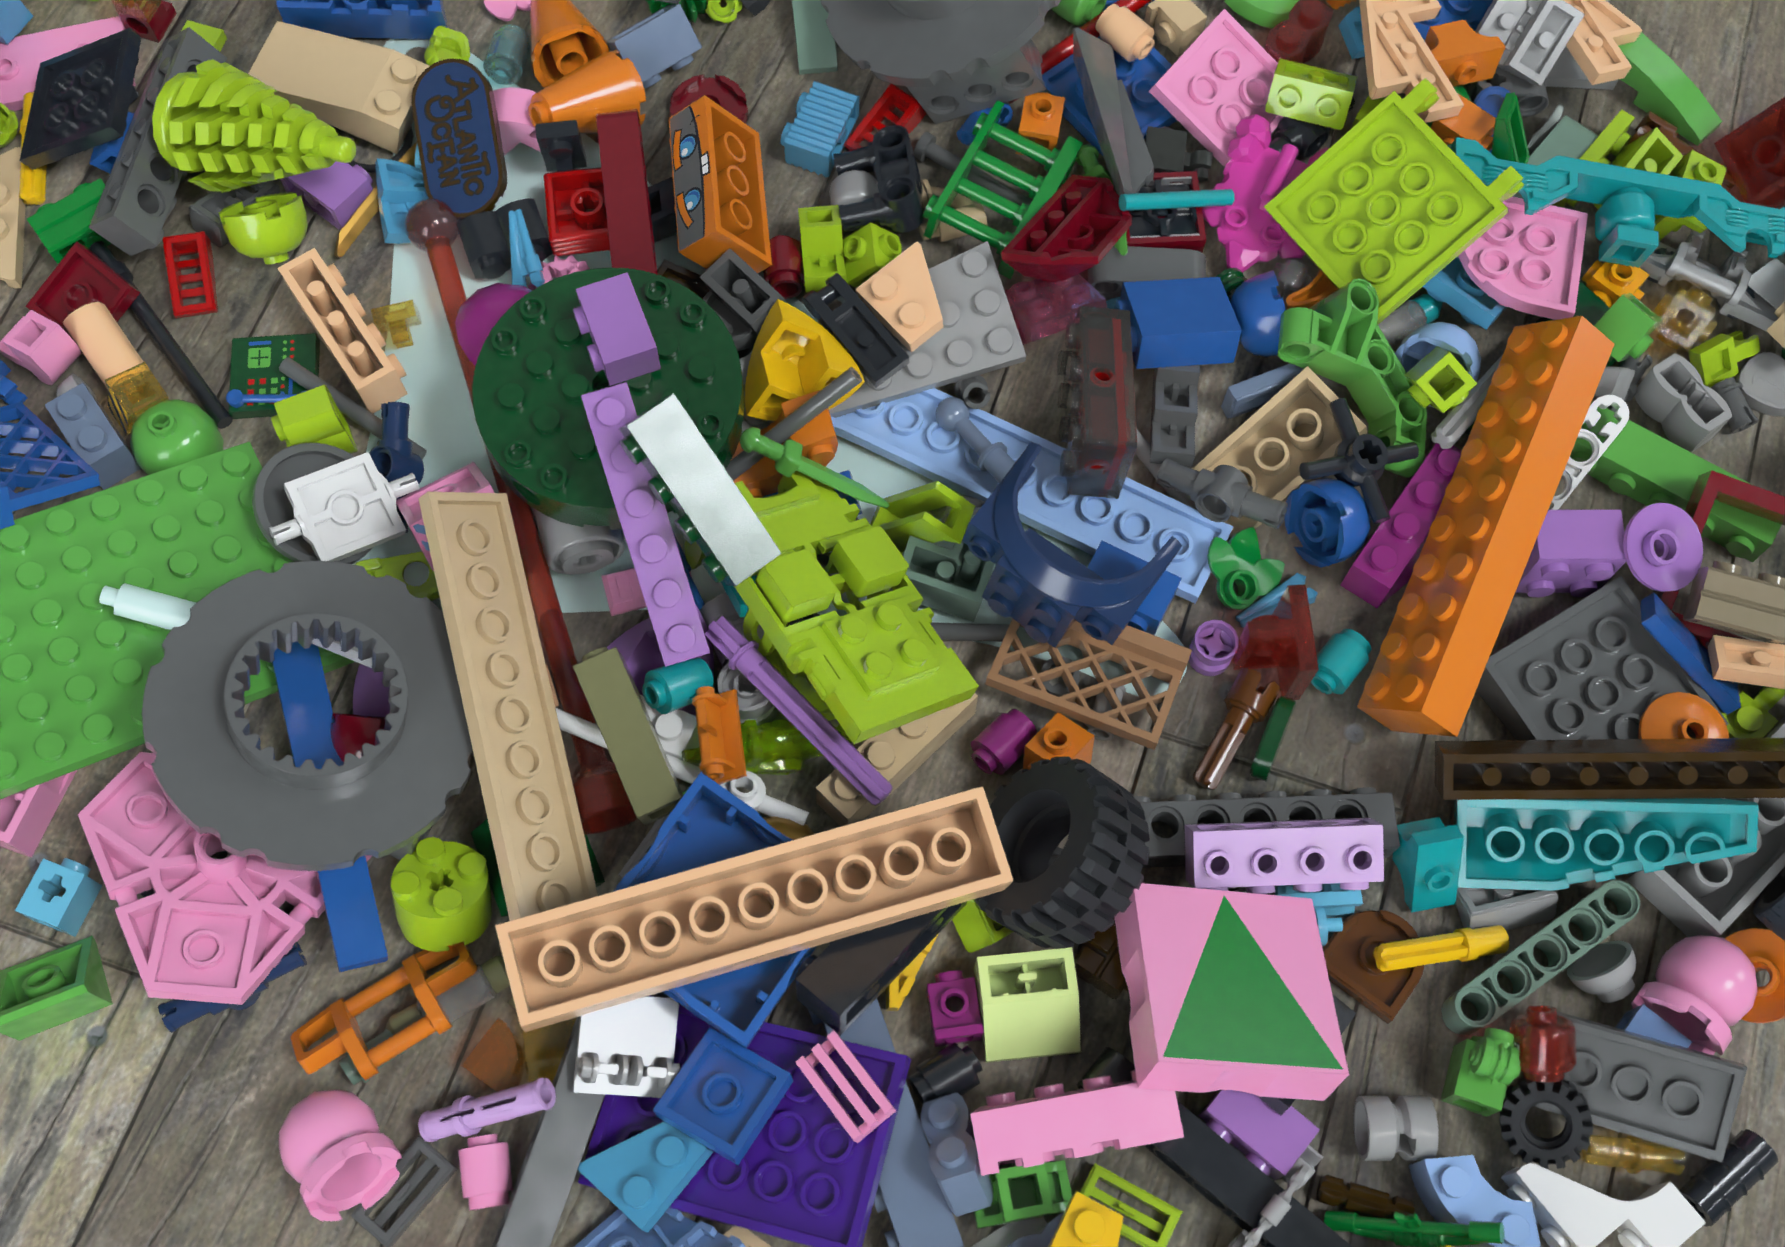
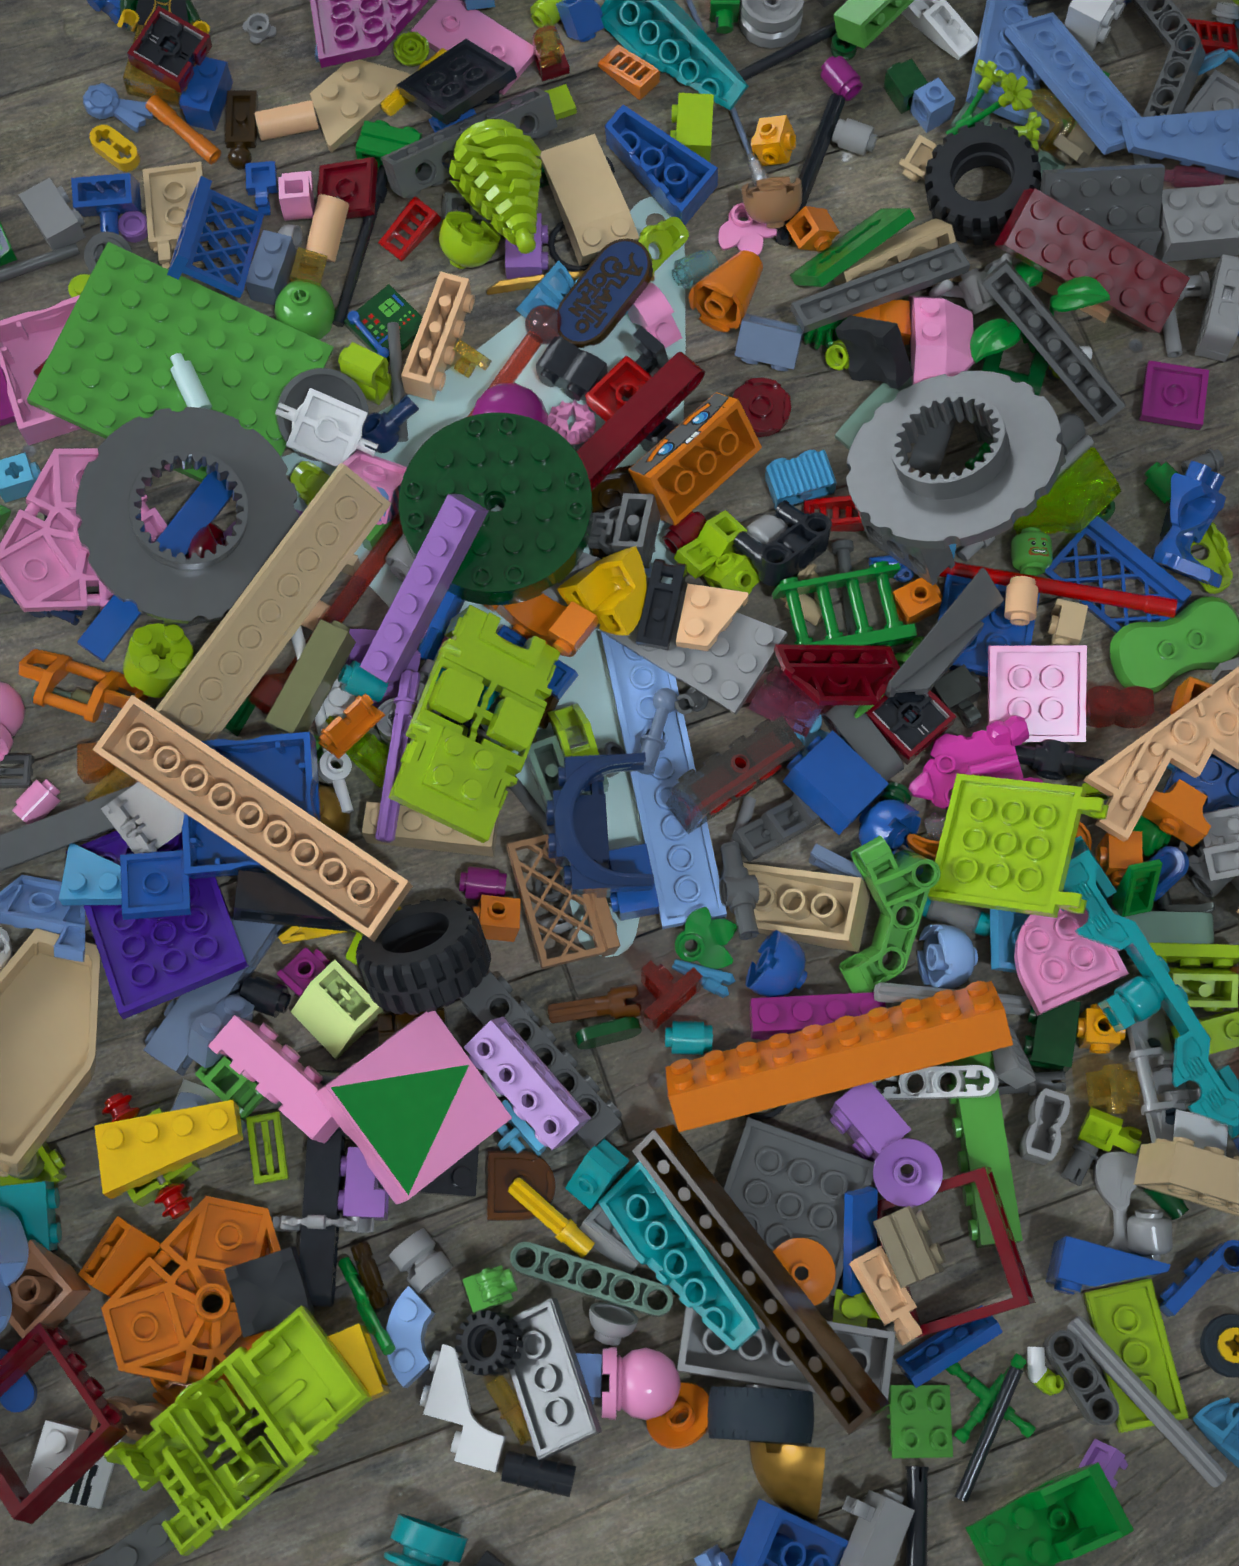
camera: 55 degrees right, 5 degrees up
(470, 1114) = (80, 788): lavender pin -> none
(523, 256) = (563, 388): dark azure piece -> none
(594, 88) = (697, 336): orange cone -> none
(617, 328) = (523, 478): medium lavender brick -> none
(699, 491) = (450, 599): brick -> none
(789, 459) = (539, 632): bright green sword -> none
(798, 419) = (559, 616): dark grey piece -> none
(821, 1053) = (192, 941): bright pink tile -> none
(1176, 199) = (918, 719): teal bar -> none
(1217, 639) = (640, 953): medium lavender wheel -> none
(1311, 94) = (1074, 742): lime bracket -> none
(1359, 460) = (832, 949): black bar -> none
(1439, 381) = (916, 962): lime brick -> none
(1544, 1043) = (524, 1306): clear red head -> none
(1628, 327) = (1053, 1050): bright green brick -> none

